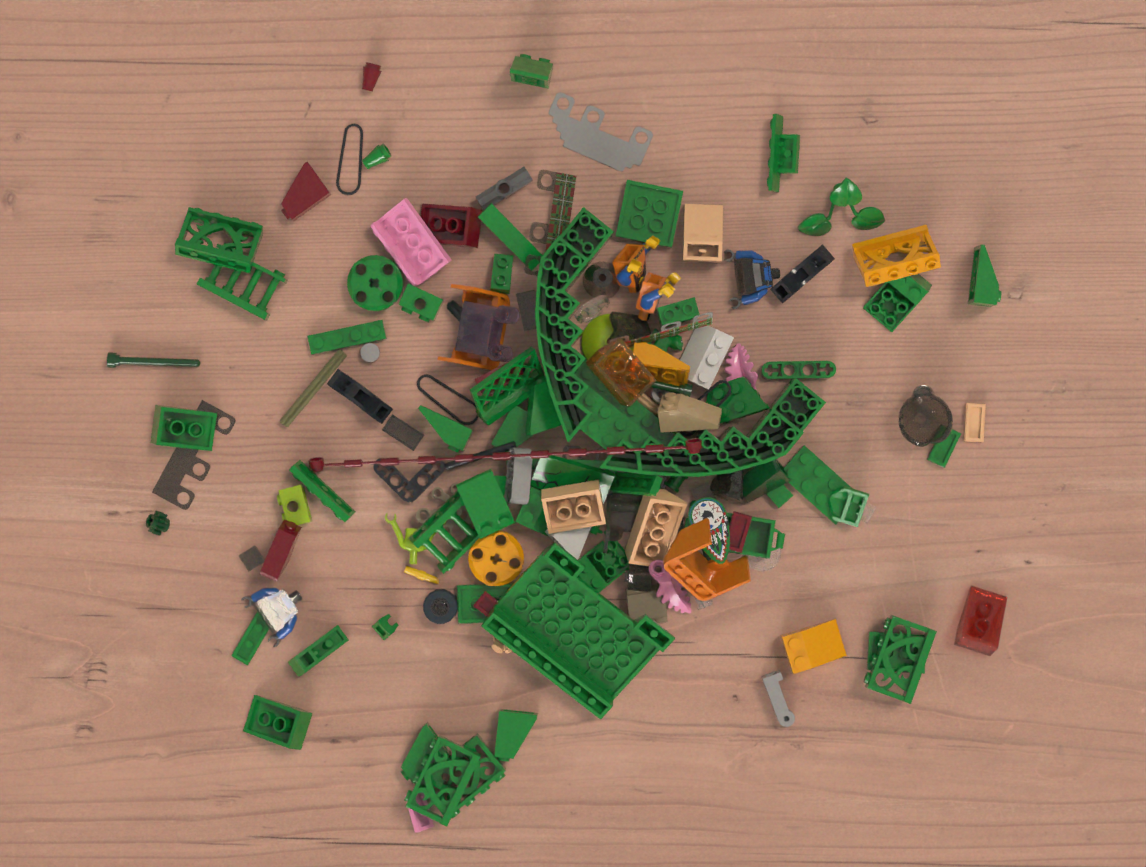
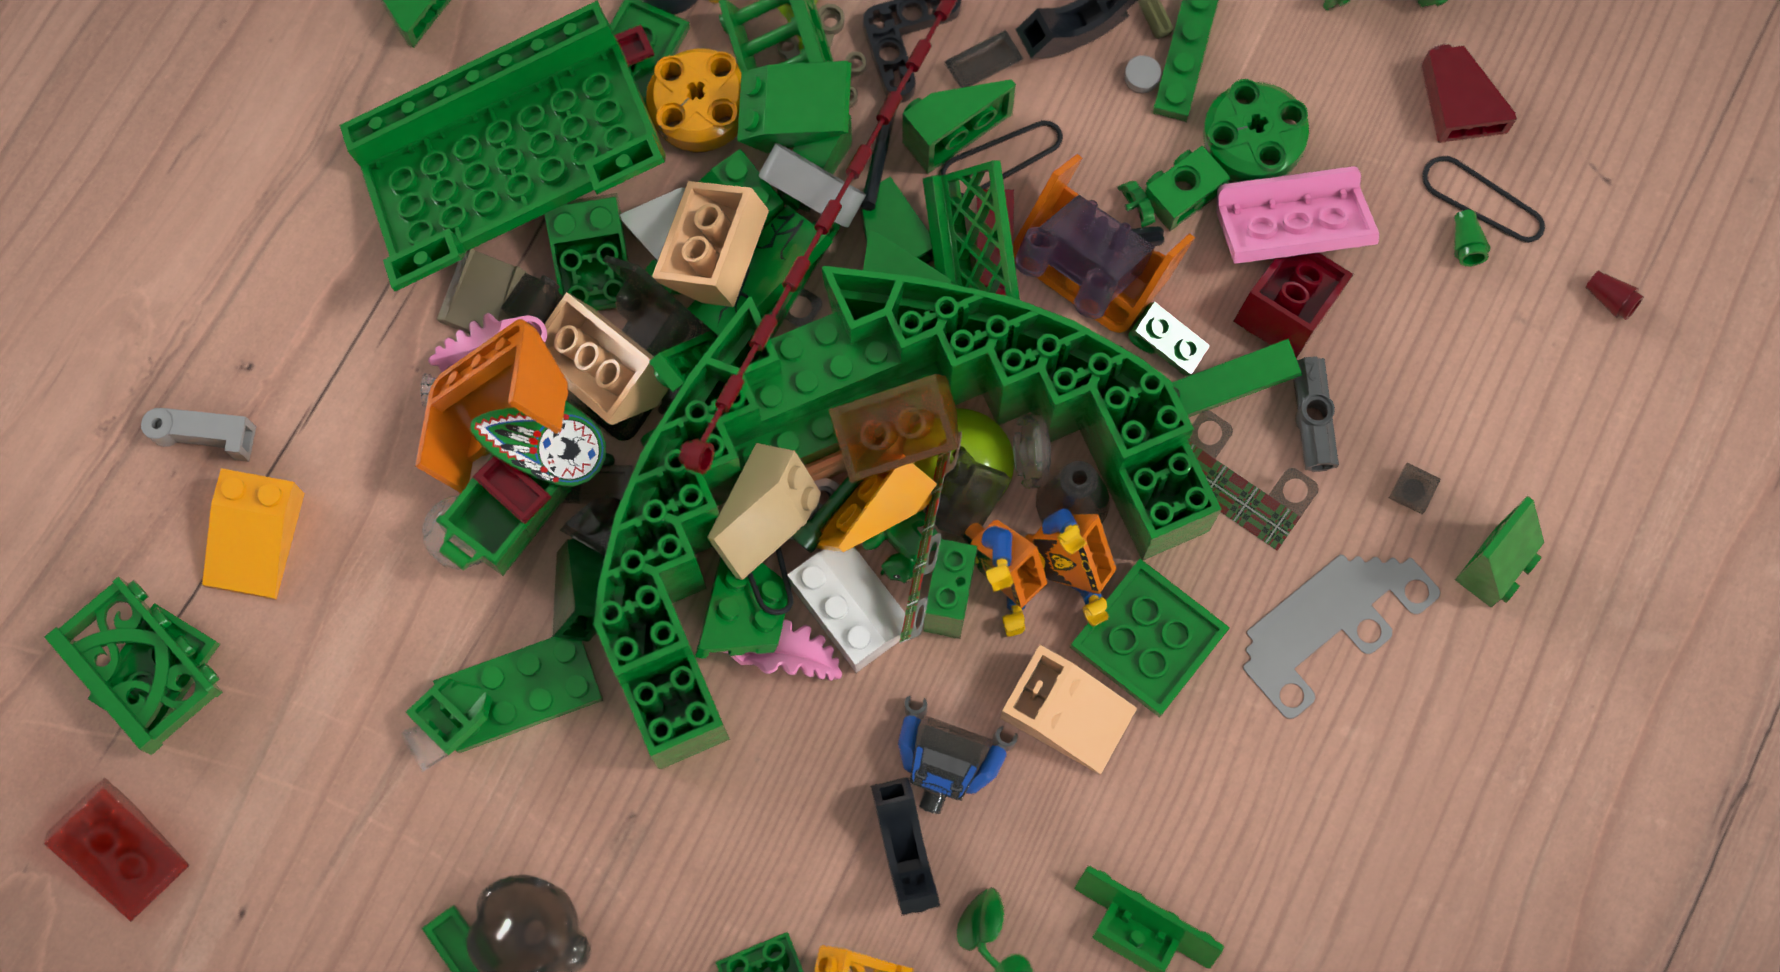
camera: 120 degrees right, 15 degrees down
(439, 321) = (1137, 199): none -> green piece
(515, 126) = (1414, 488): none -> clear smoke plate
(780, 495) = (537, 612): green tile -> none
(798, 369) = (734, 755): green beam -> none

